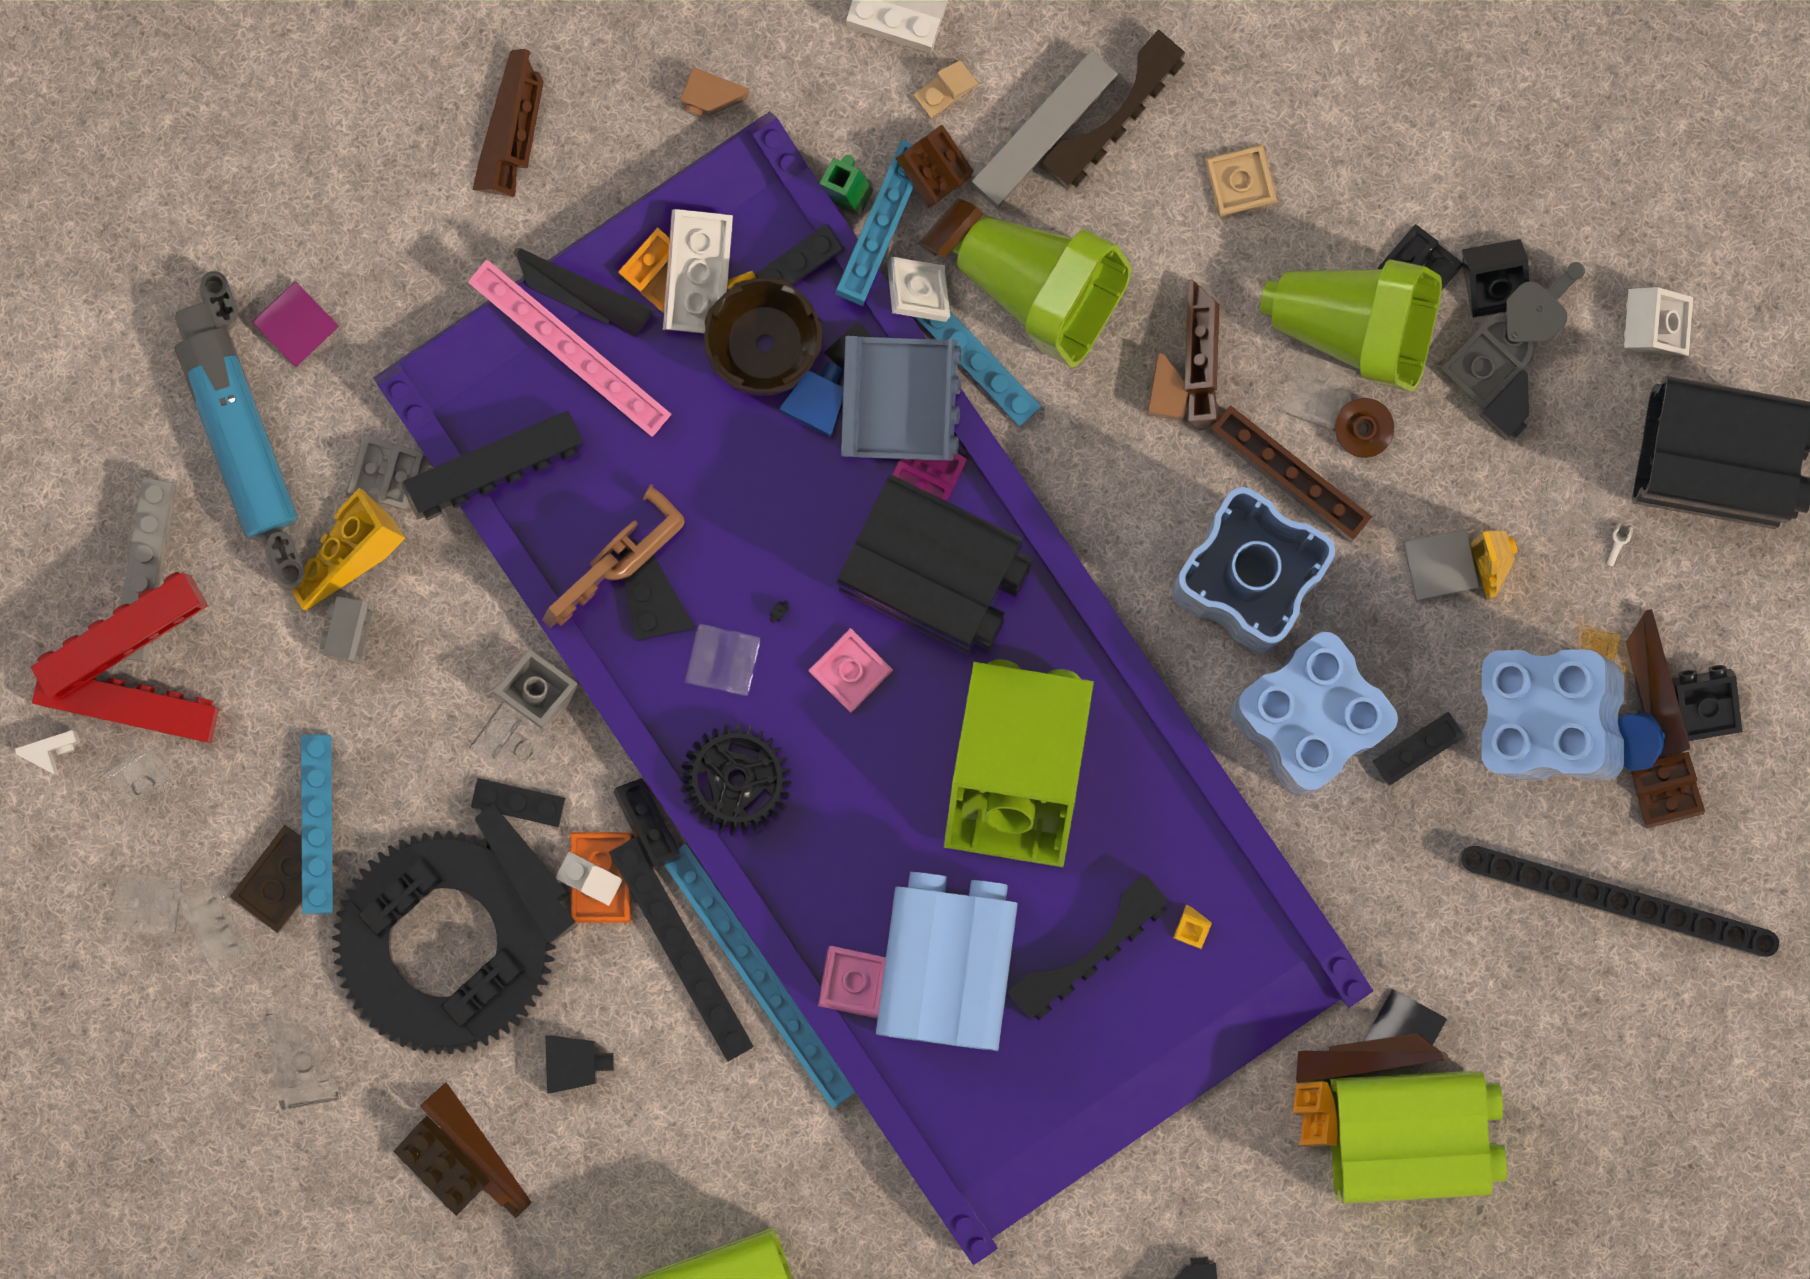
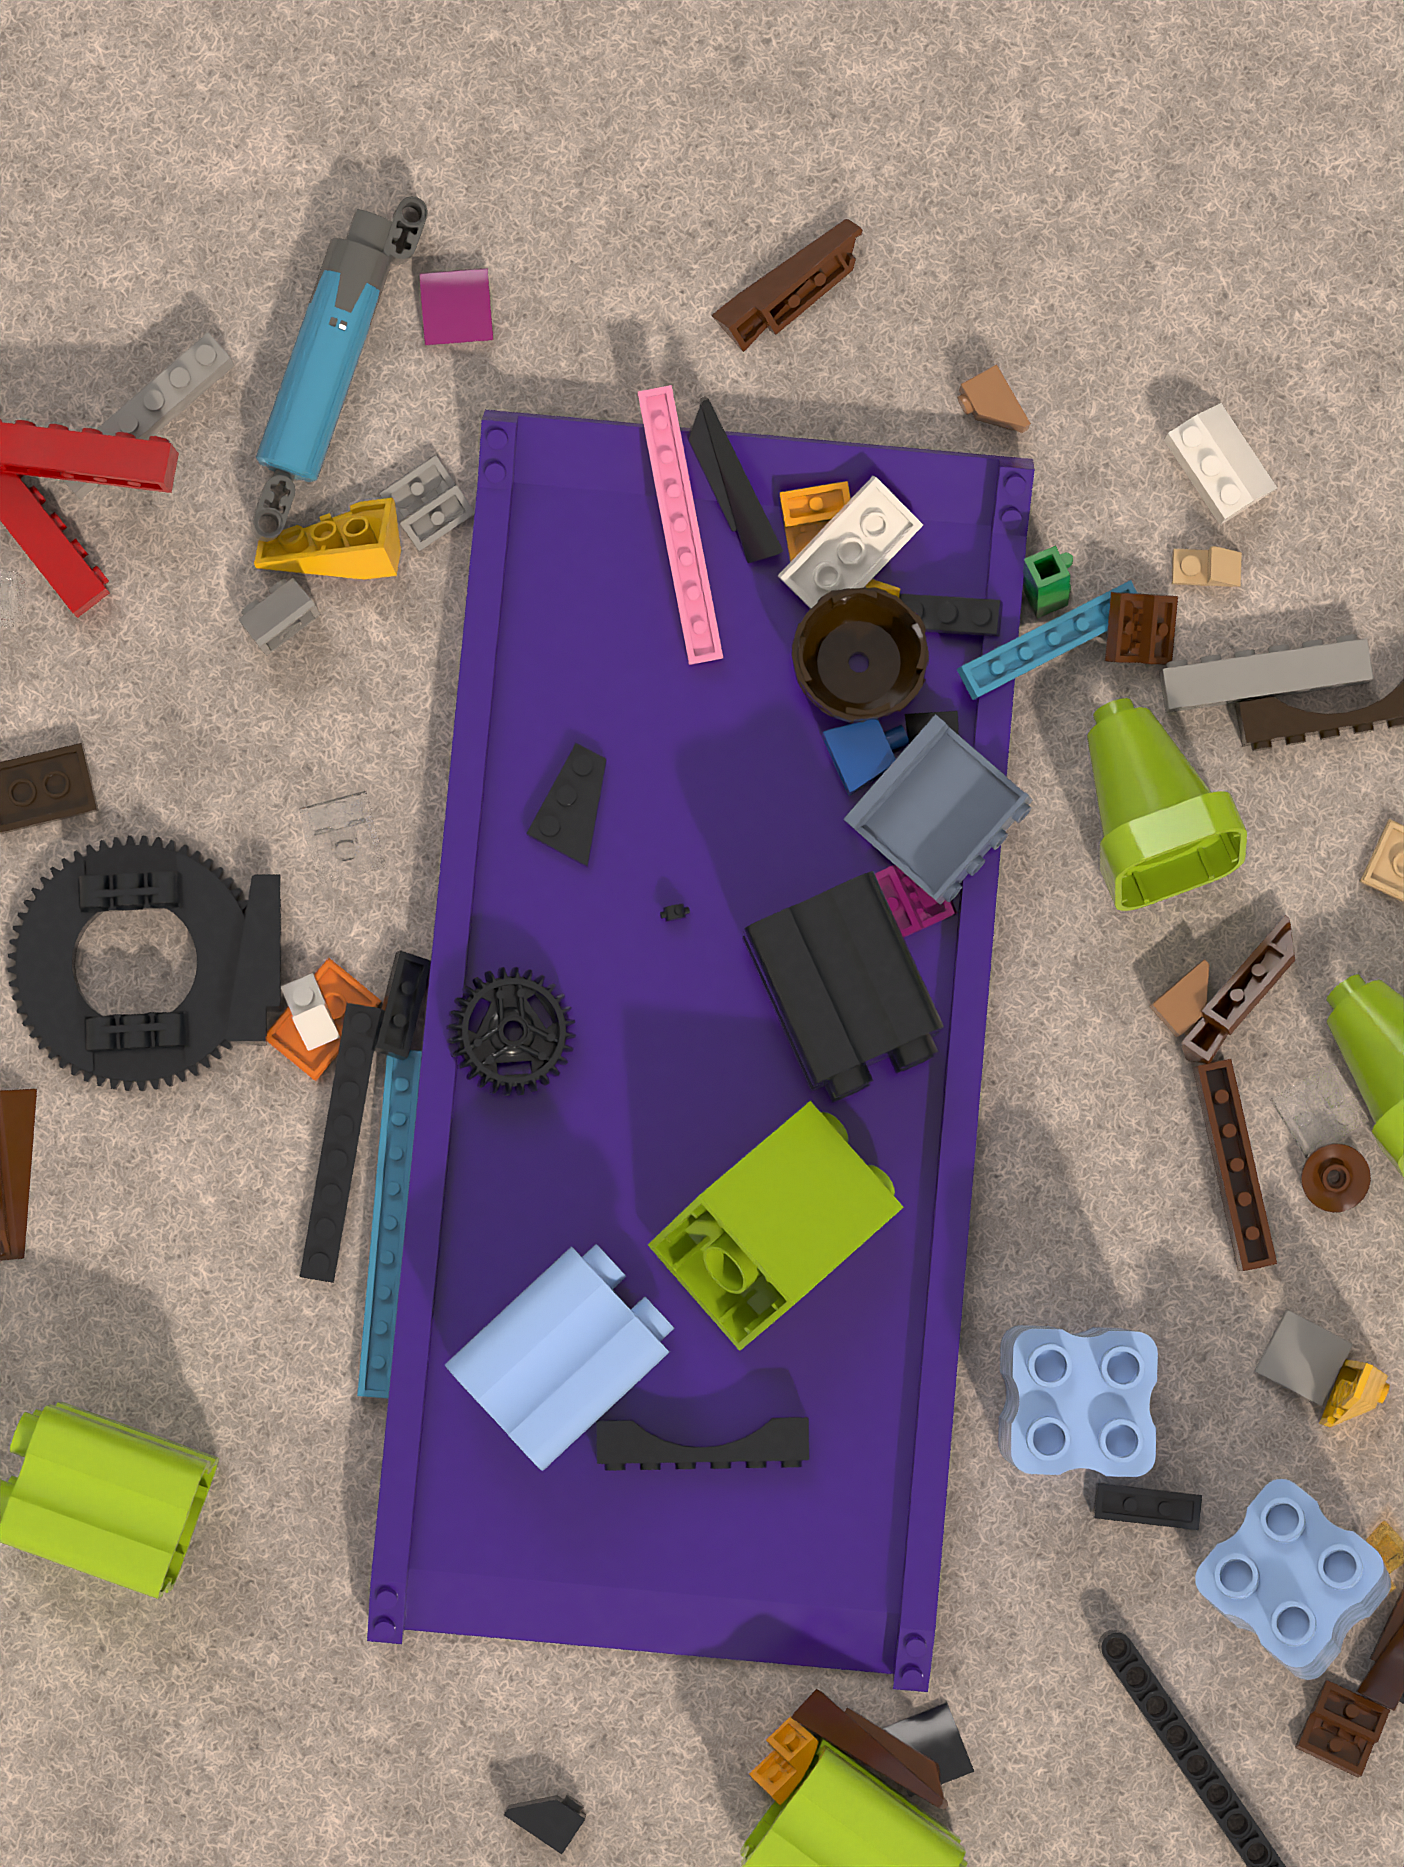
camera: 35 degrees right, 0 degrees up
(316, 825) = (109, 766): dark azure plate -> none
(492, 465) = (525, 573): black brick -> none
(519, 802) = (304, 893): black plate -> none
(537, 689) = (401, 806): light grey slope -> none
(573, 1063) = (162, 1165): black torso -> none
(608, 567) = (553, 748): medium nougat plate -> none
(722, 660) = (588, 914): clear slope -> none
(850, 670) = (695, 1018): bright pink tile -> none
(852, 982) = (466, 1297): bright pink tile -> none
(918, 289) = (1035, 726): white tile -> none
(950, 228) = (1109, 695): reddish brown slope -> none
(985, 369) = (1036, 829): dark azure plate -> none
(1192, 927) = (811, 1501): yellow slope -> none
(1253, 570) = (1129, 1225): light blue brick -> none
(1642, 740) = (1356, 1666): blue hat -> none

